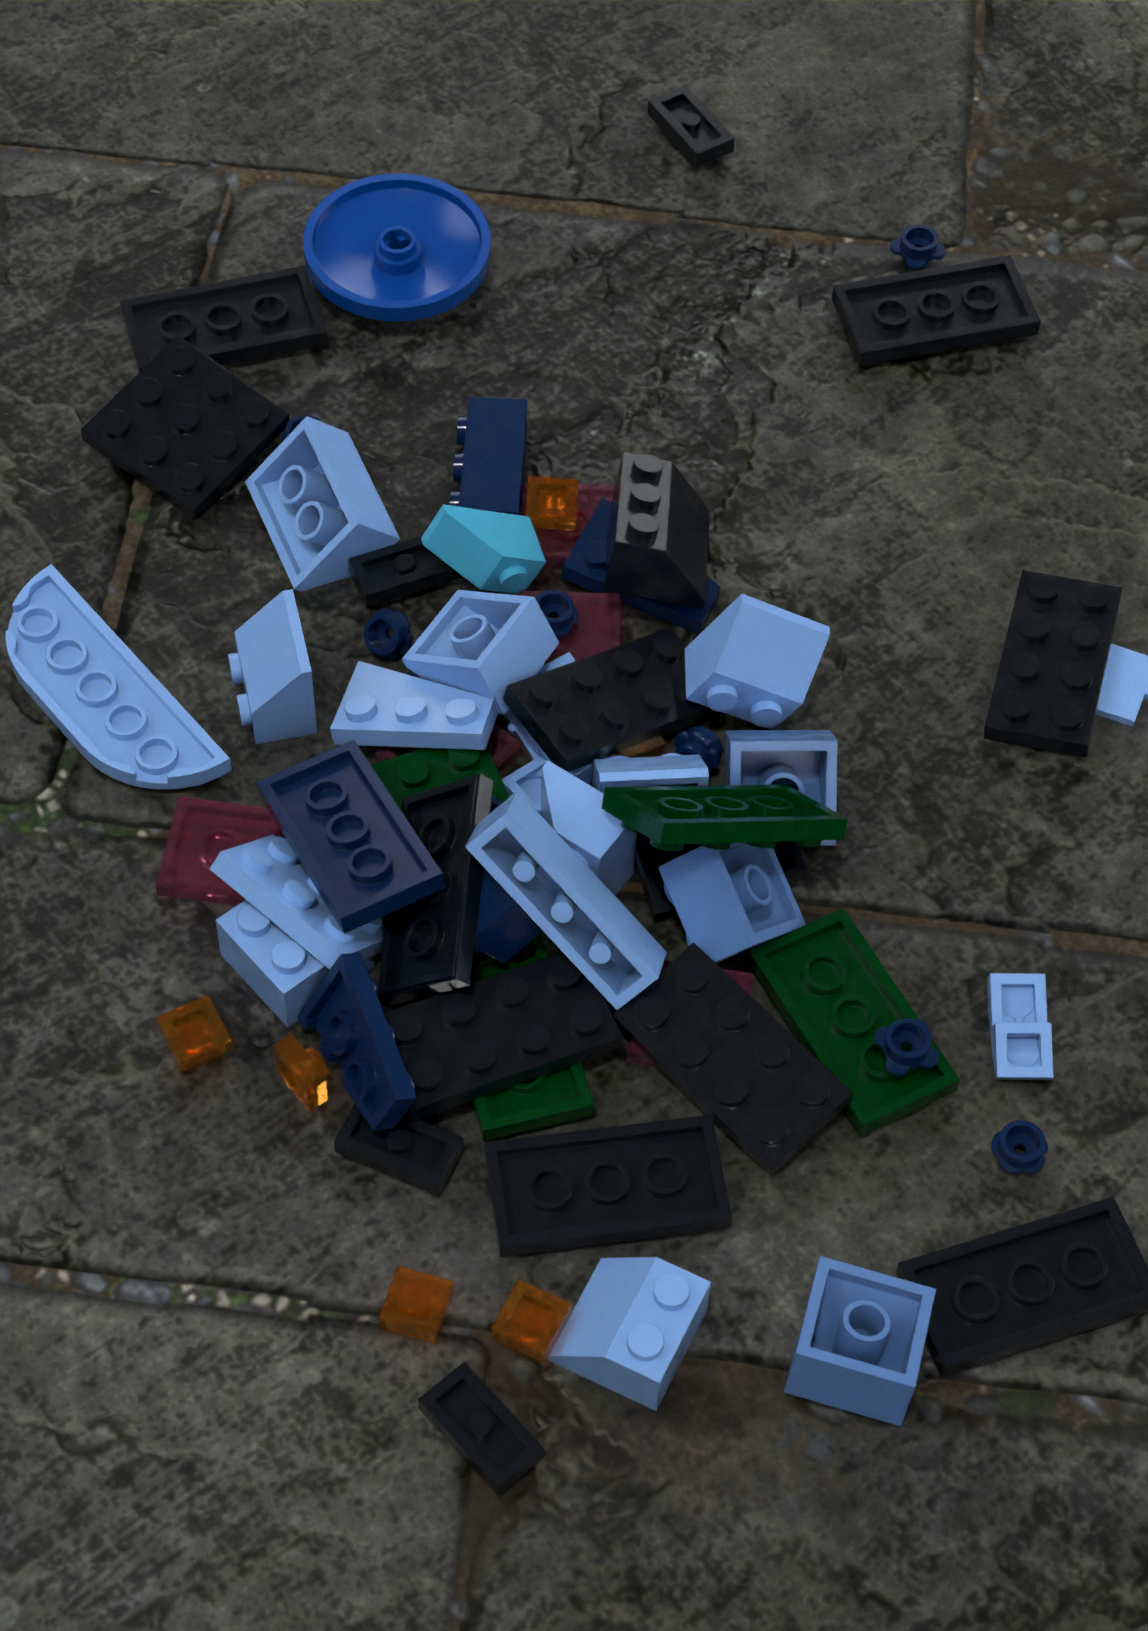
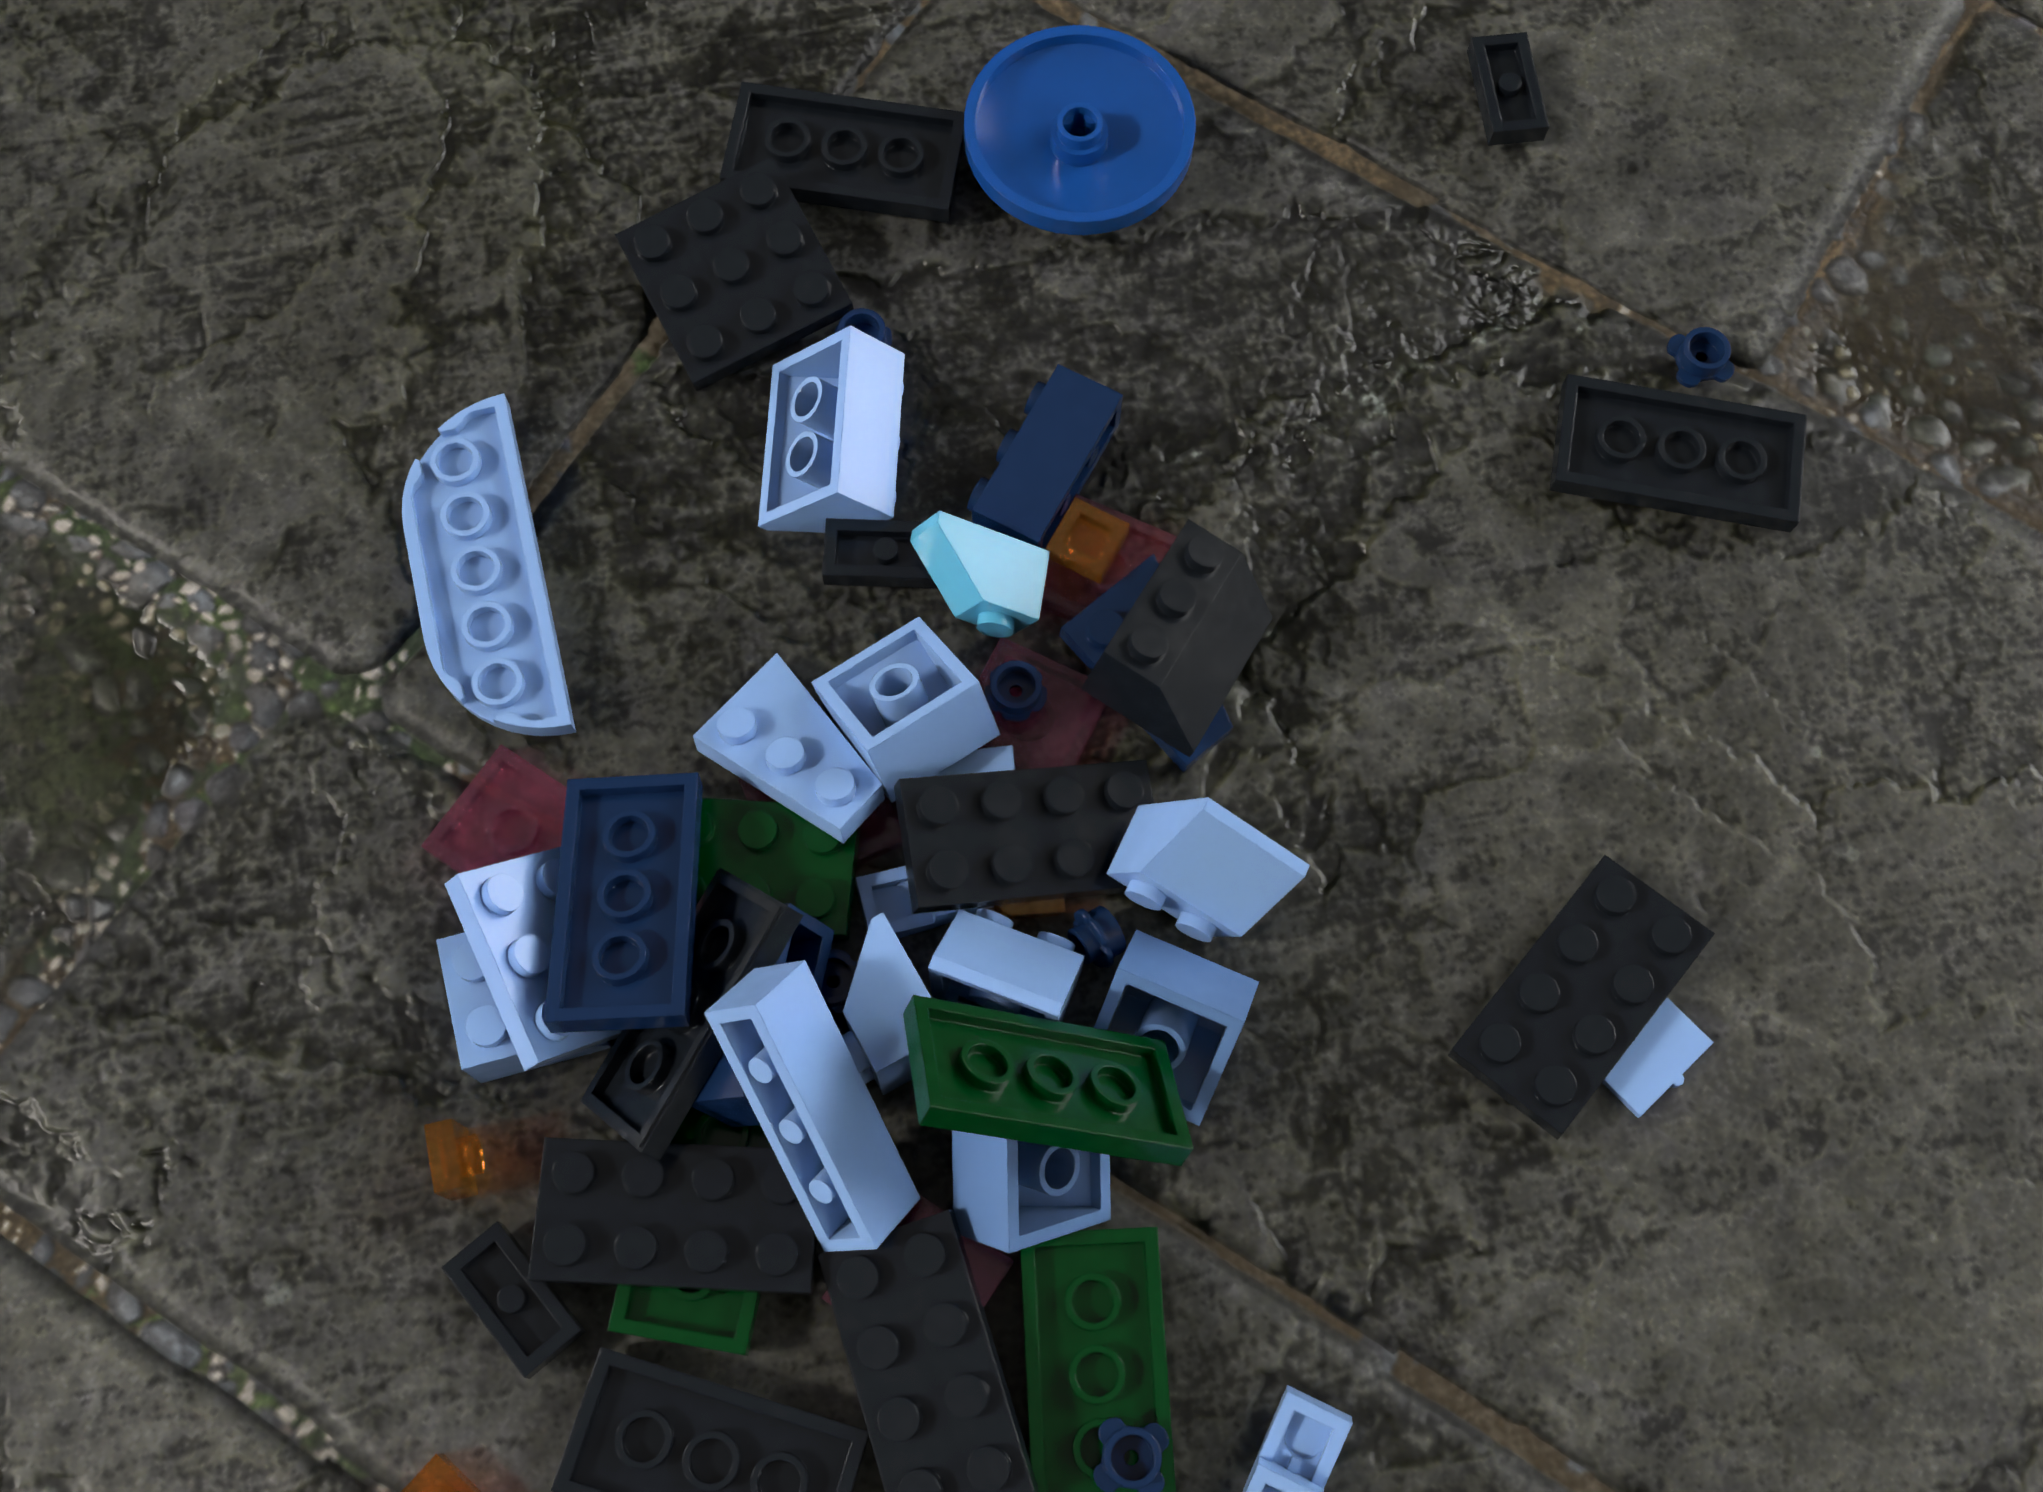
camera: 25 degrees right, 15 degrees up
(194, 1033) = (368, 1055): clear orange plate -> none
(274, 673) = (669, 639): light blue slope -> none
(361, 1041) = (515, 1149): dark blue wing -> none
(377, 635) = (824, 632): dark blue plate -> none

